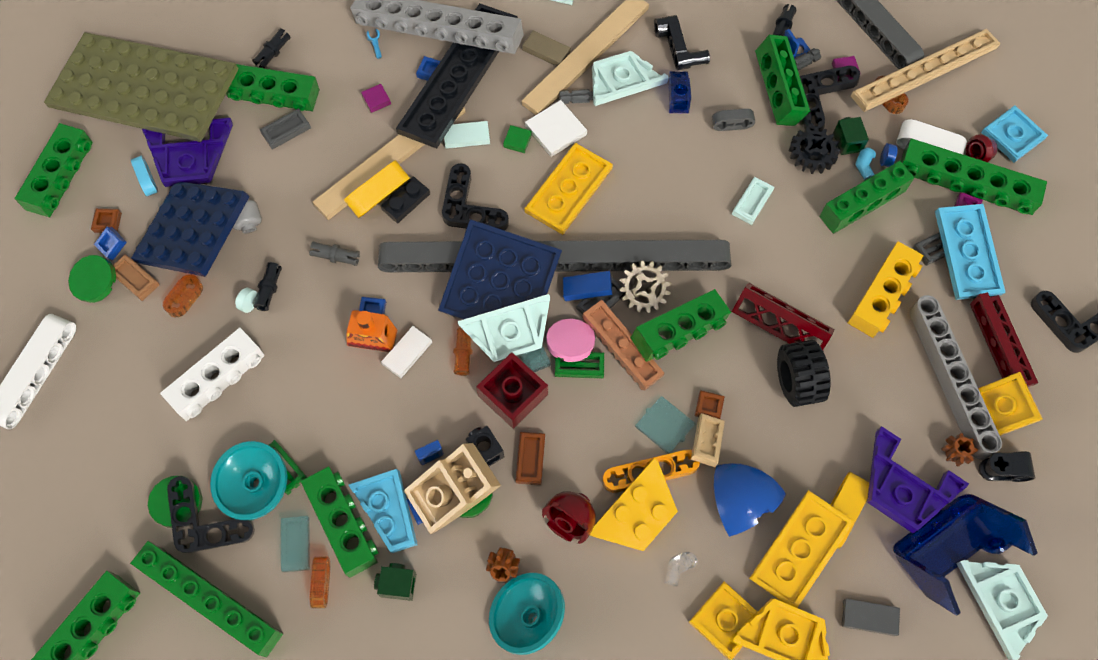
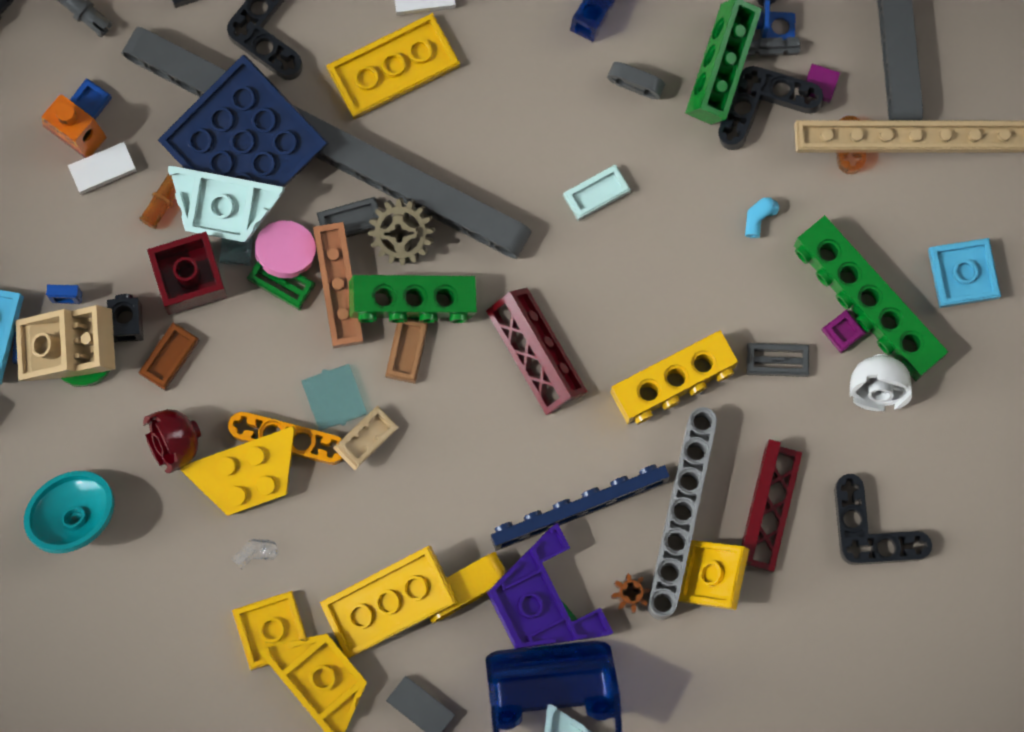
camera: 25 degrees right, 10 degrees up
(503, 564) = (74, 451): dark orange gear -> none
(587, 286) = (340, 196): blue tile -> none
(696, 366) = (407, 351): none -> medium nougat tile
(709, 404) = (394, 402): dark orange tile -> none
(744, 495) = (363, 515): blue brick -> none
(803, 373) = (507, 421): black tyre -> none
(816, 148) = (693, 170): black gear -> none
(851, 135) = (759, 173): dark green brick -> none
(866, 197) = (726, 258): green brick -> none
(877, 416) = (591, 501): none -> dark blue plate
(888, 155) = (791, 221): blue tile -> none
(931, 135) = (856, 228): white beam -> none
(969, 251) = (800, 385): medium azure plate -> none
(981, 148) = (906, 272): dark red cone -> none
(1008, 467) = (678, 642): black piece -> none
(1019, 222) = (880, 383): none -> white cylinder

